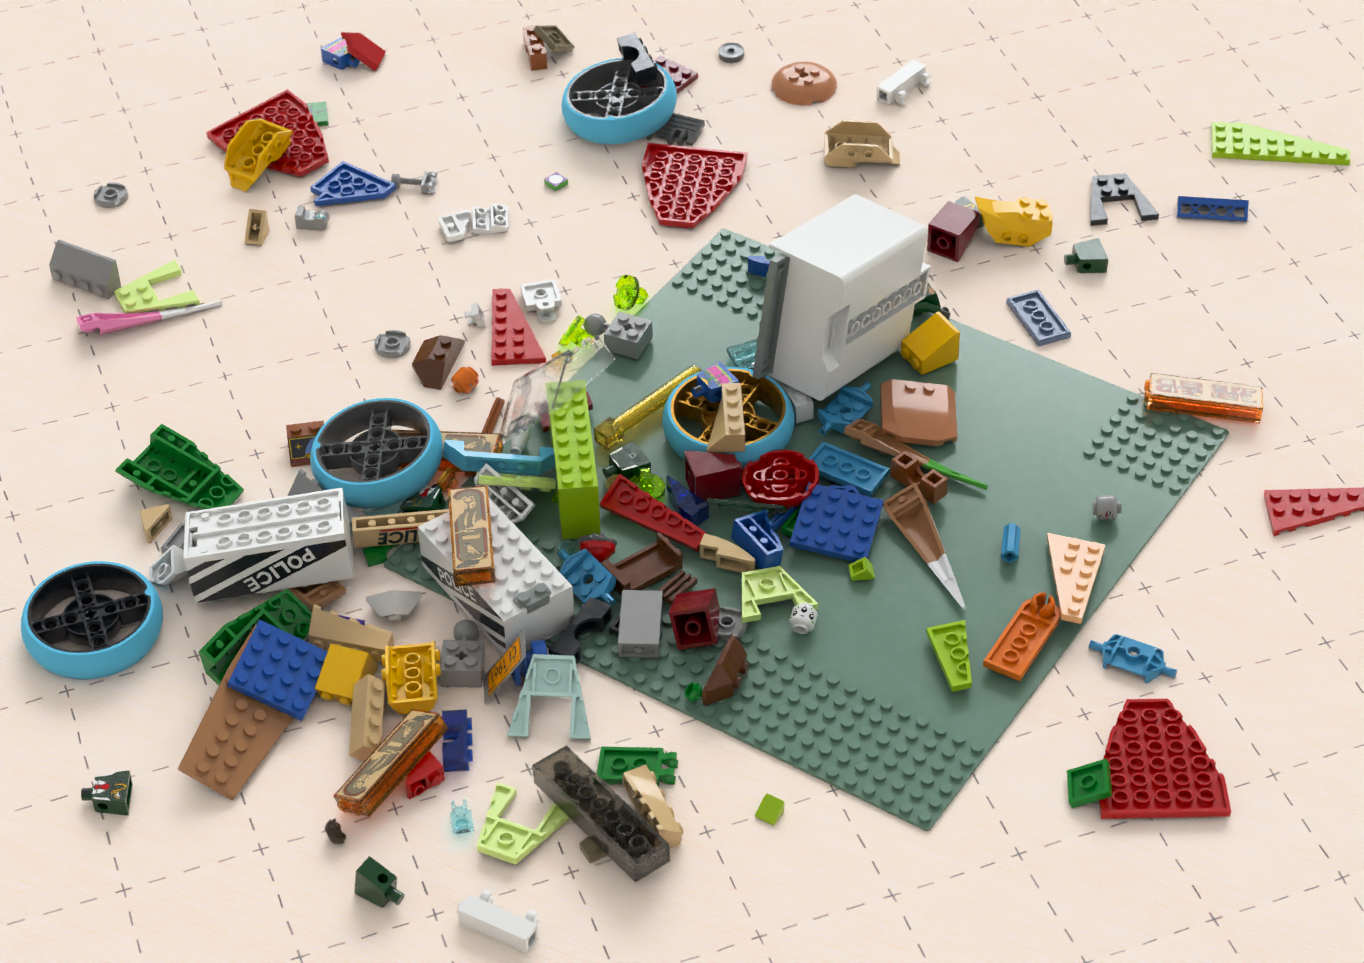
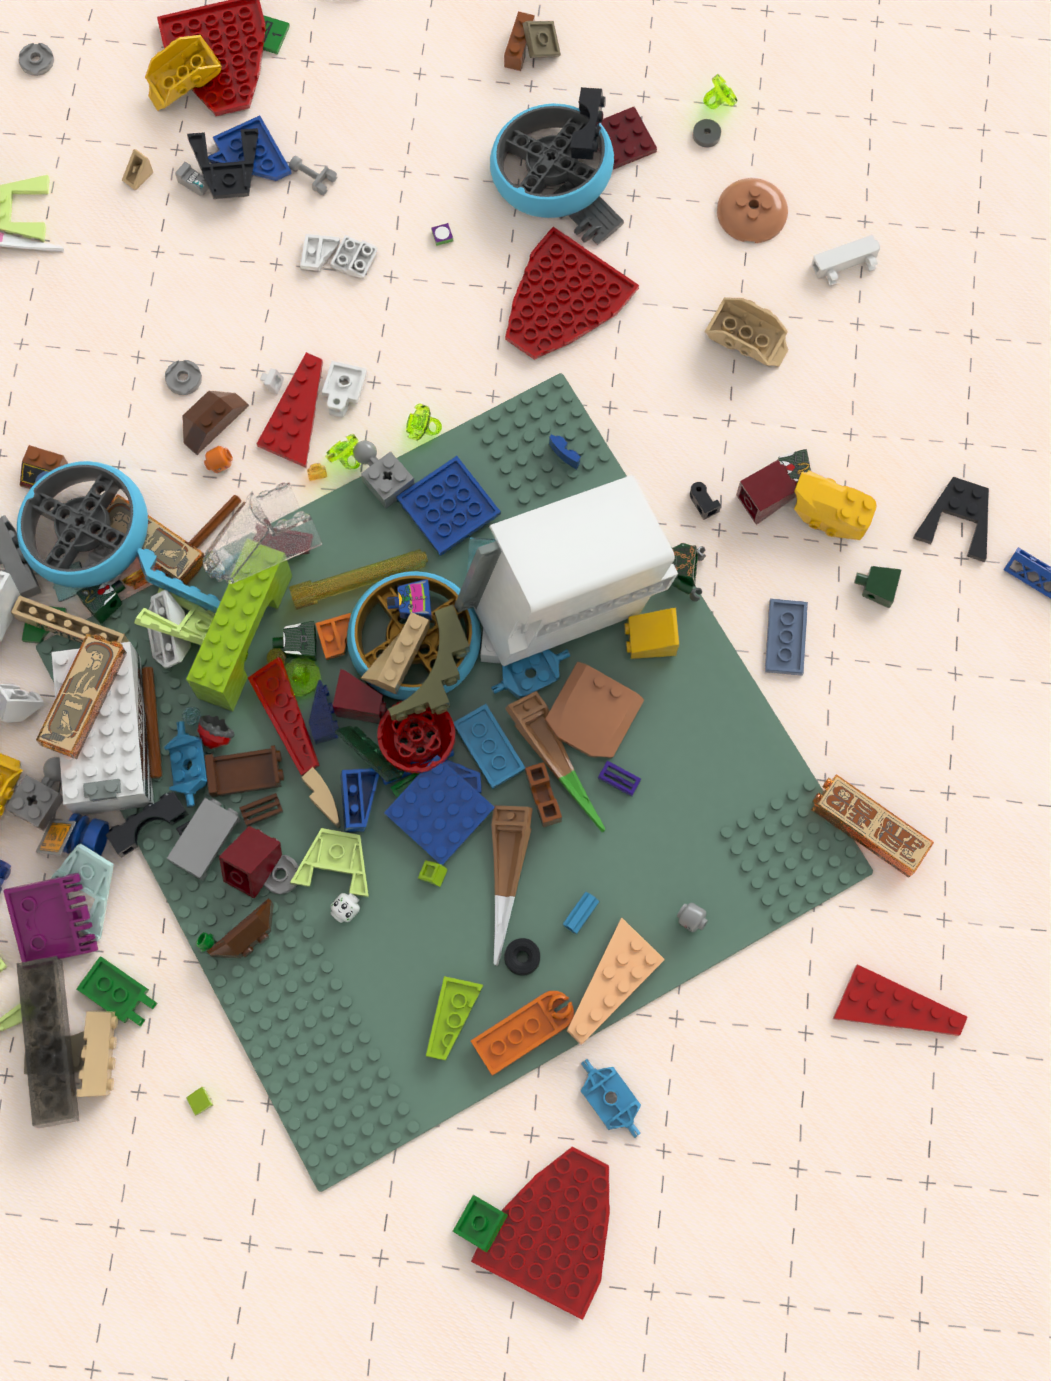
camera: 25 degrees right, 30 degrees up
(341, 204) = (227, 178): none -> black wing
(533, 729) = (46, 921): none -> magenta hinge
(656, 450) = (333, 635): none -> orange wing
(692, 334) = (448, 505): none -> blue plate
(727, 22) = (721, 92): none -> clear neon green tile
(771, 400) = (444, 672): none -> olive arch
(973, 449) = (616, 785): none -> dark purple tile
(979, 599) = (517, 946): none -> black tyre

